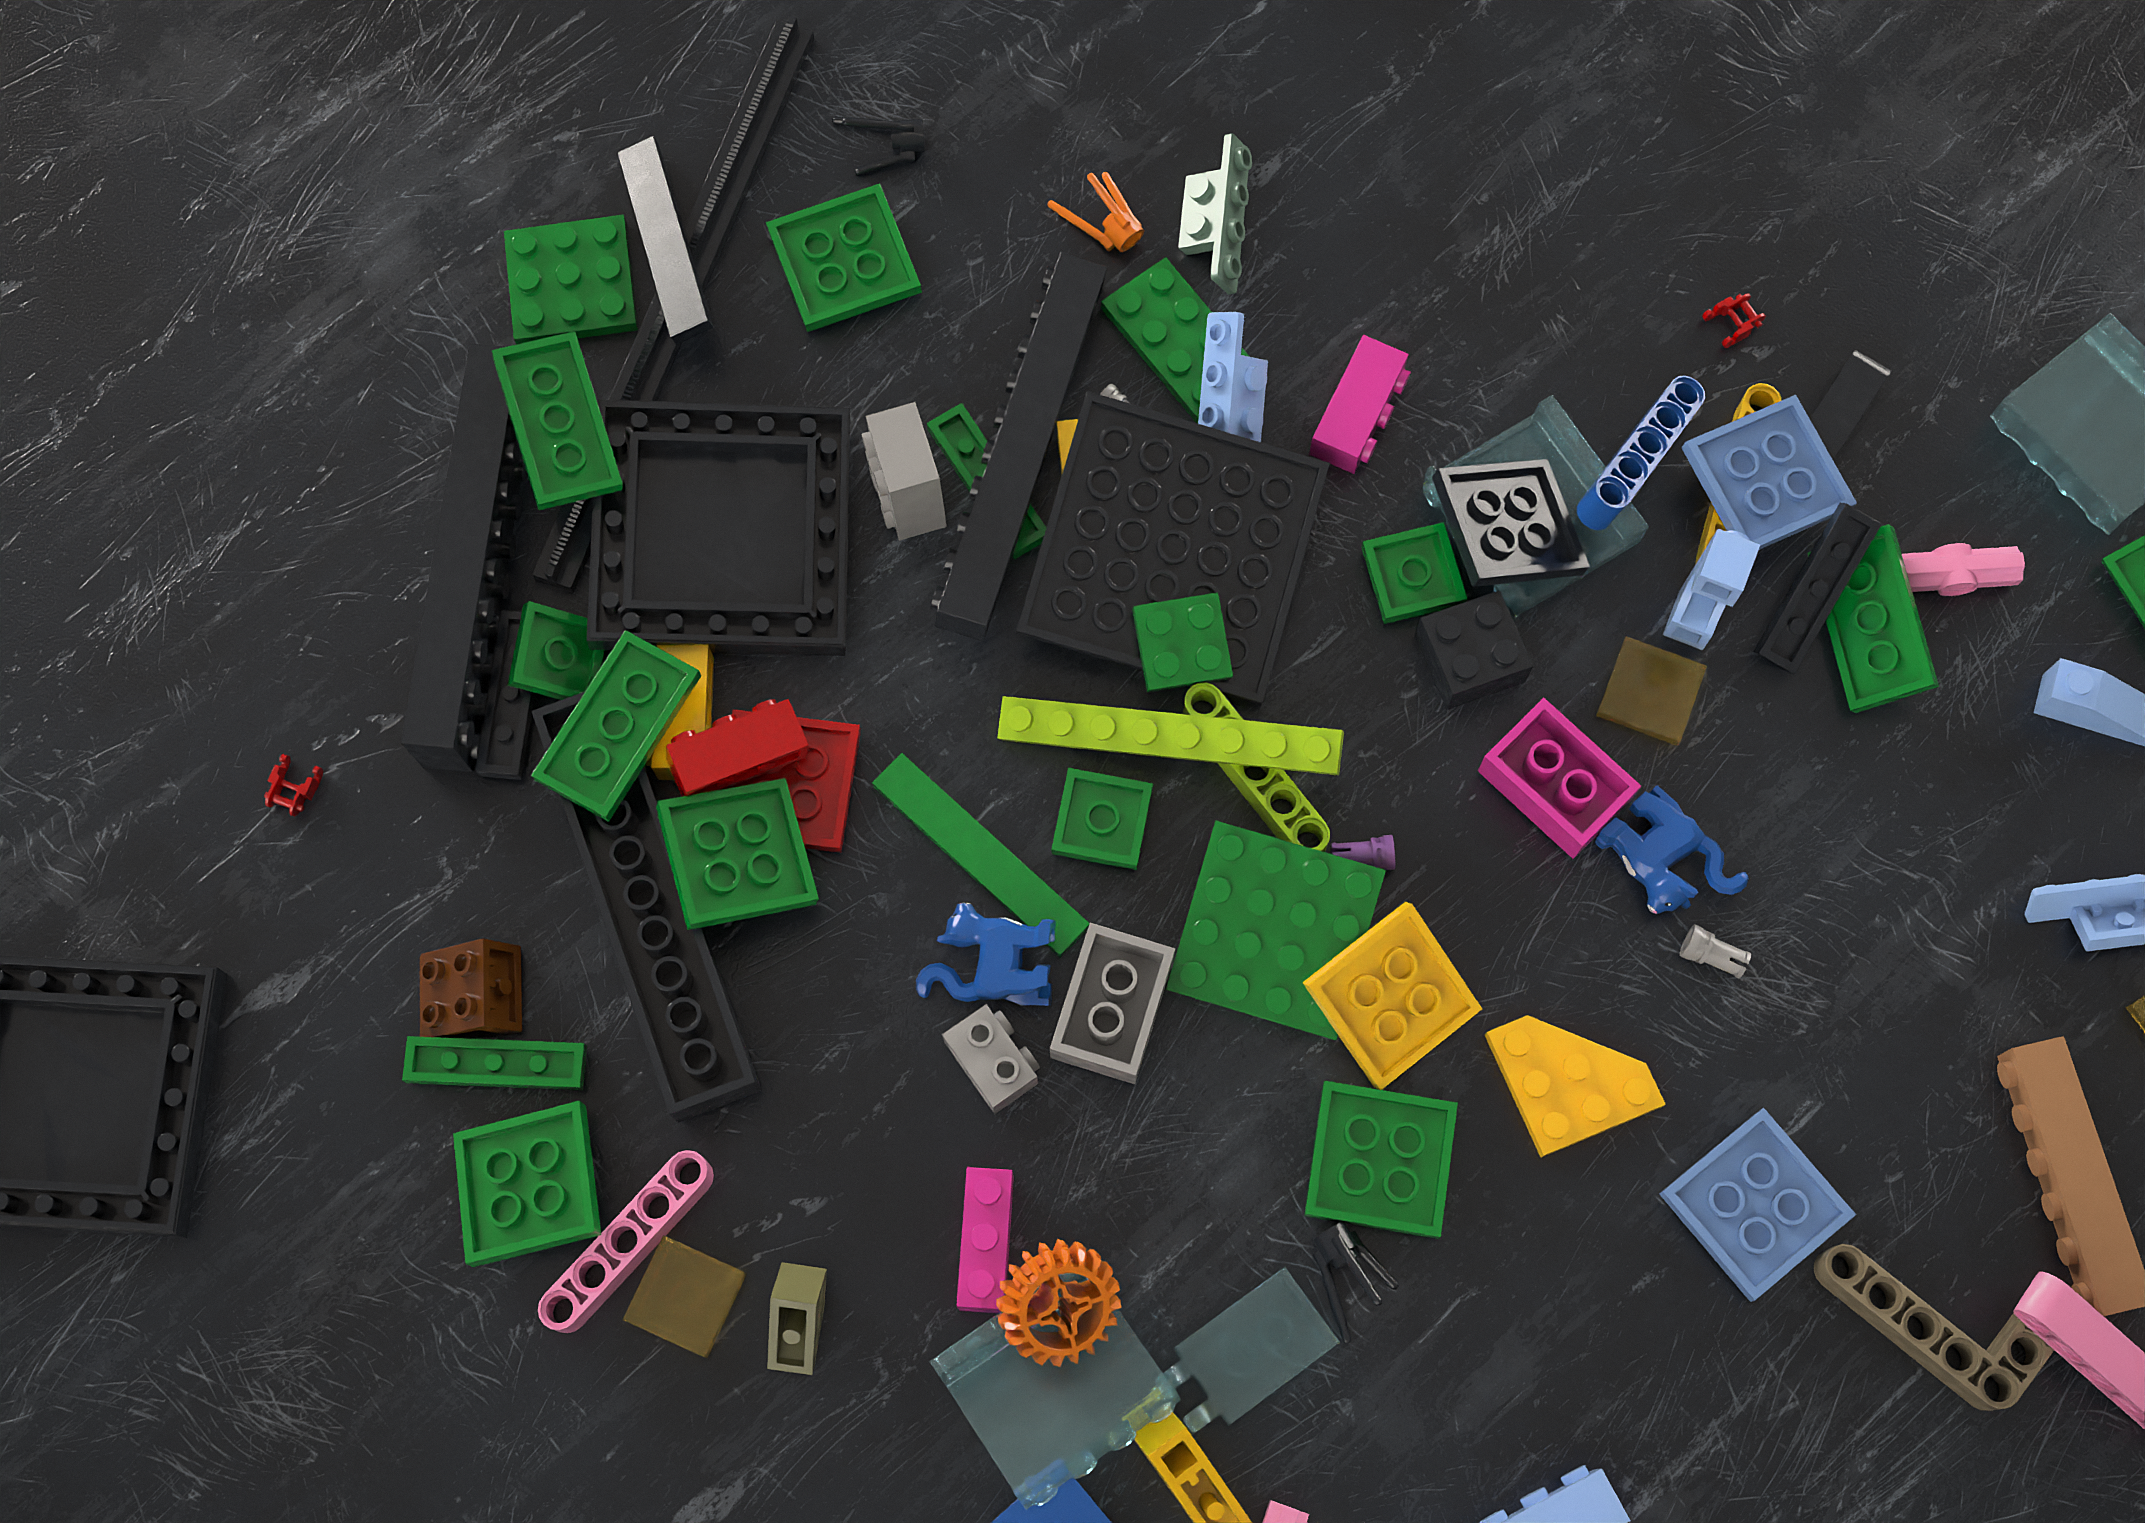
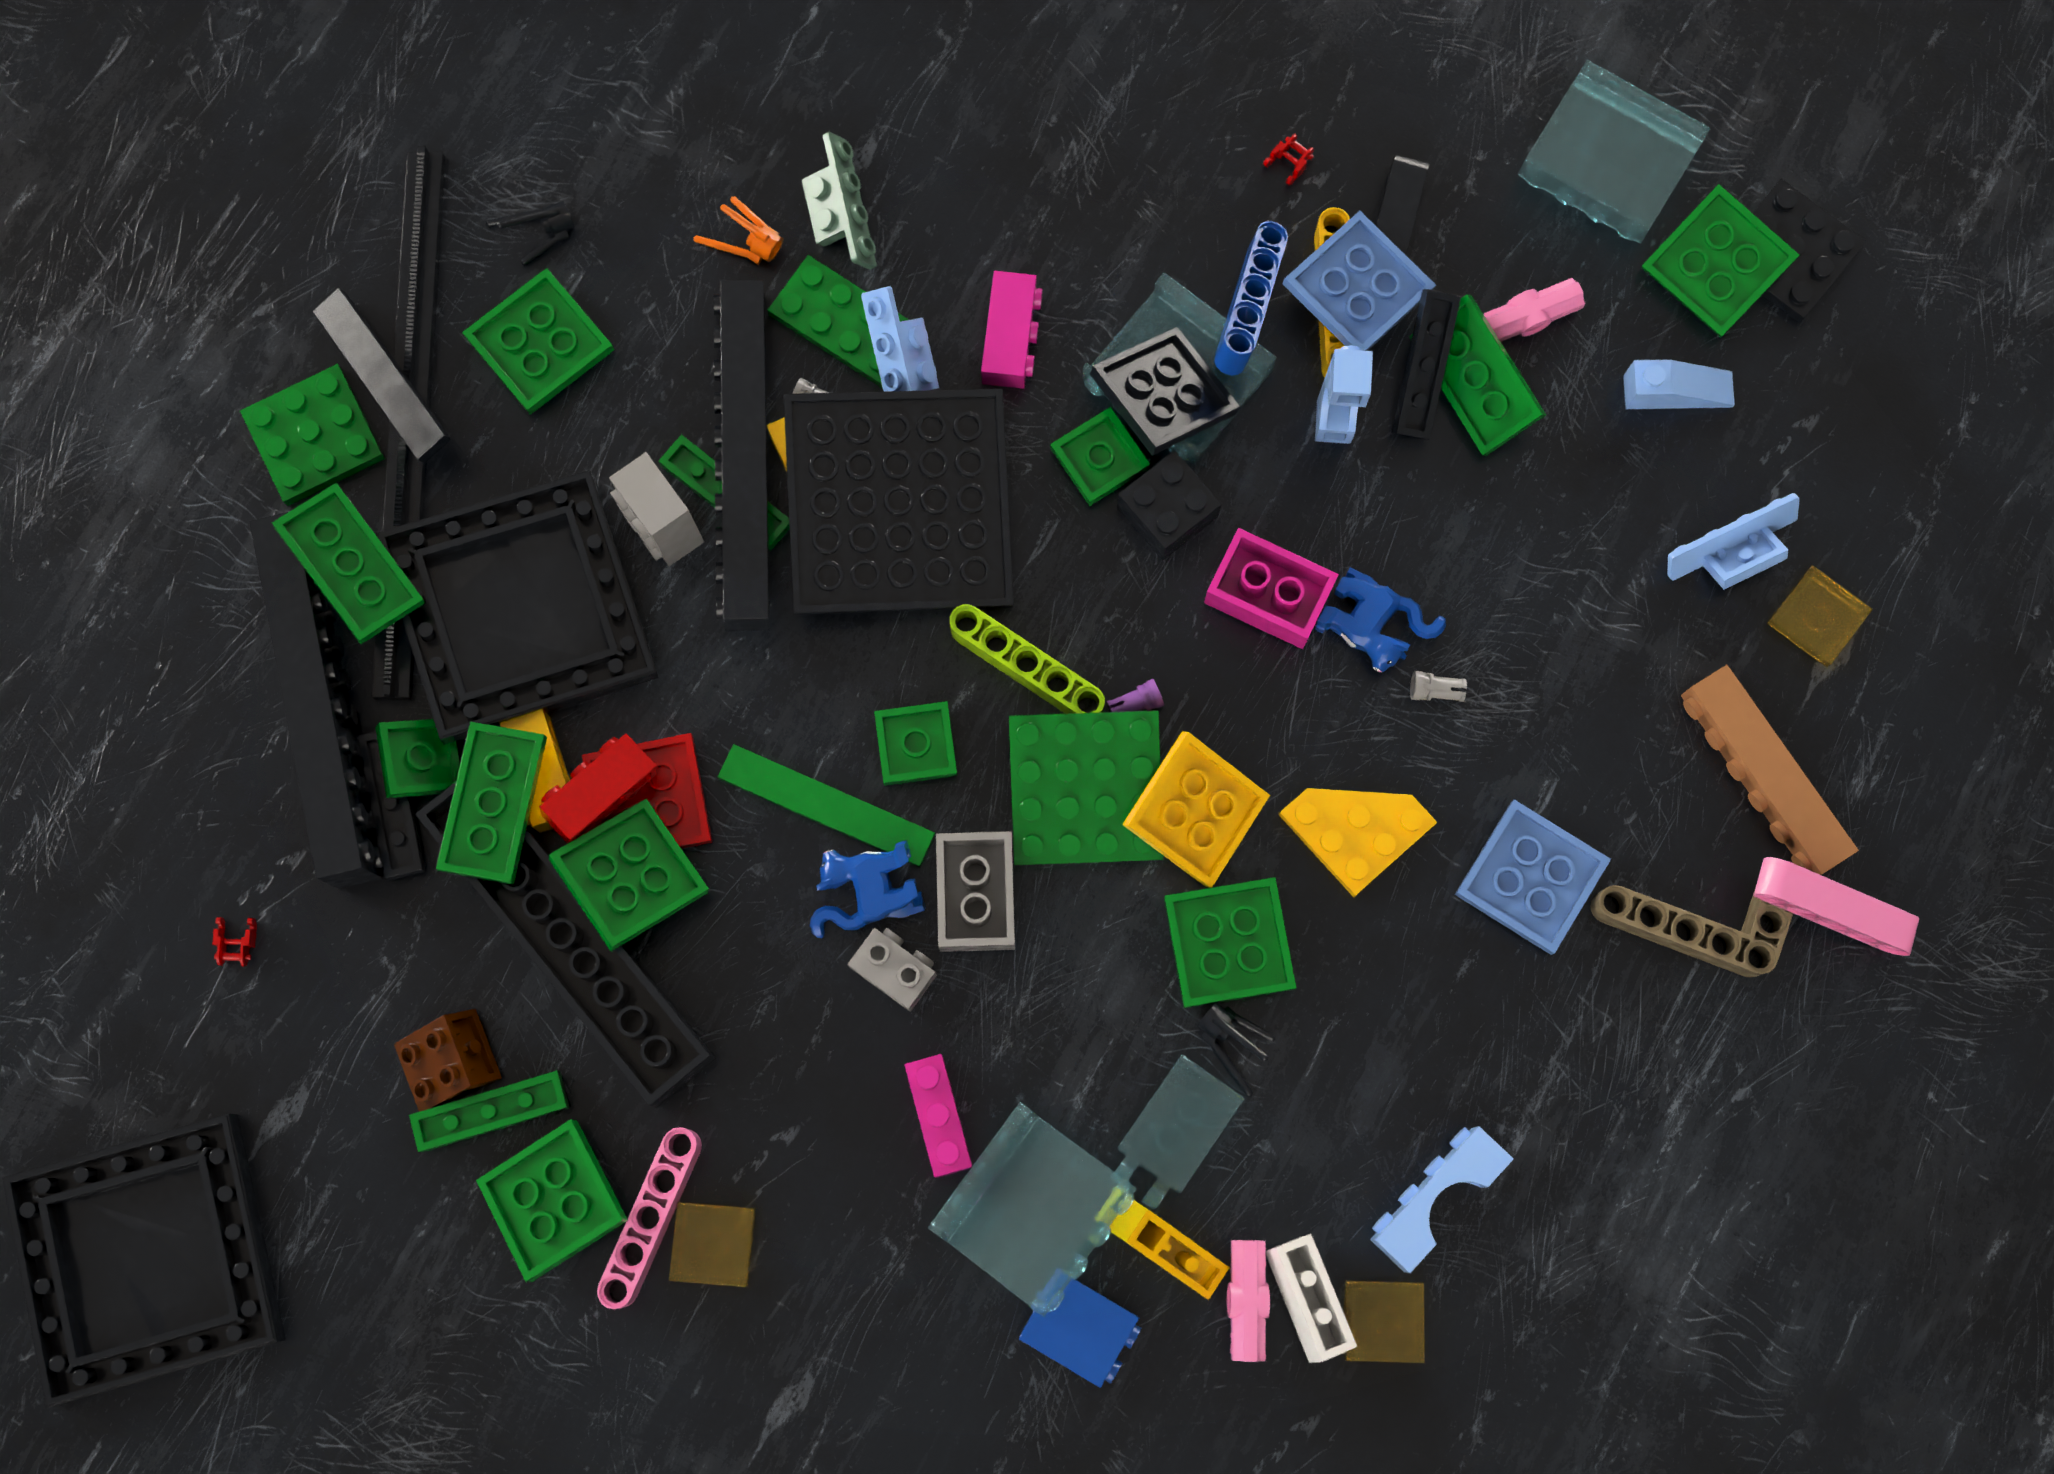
camera: 20 degrees left, 5 degrees up
(796, 1318) = (808, 1230): olive slope -> none
(1092, 1298) = (995, 1151): orange gear -> none
(1171, 735) = (948, 657): lime plate -> none
(1182, 642) = (932, 577): green plate -> none
(1651, 691) = (1321, 490): clear yellow tile -> none

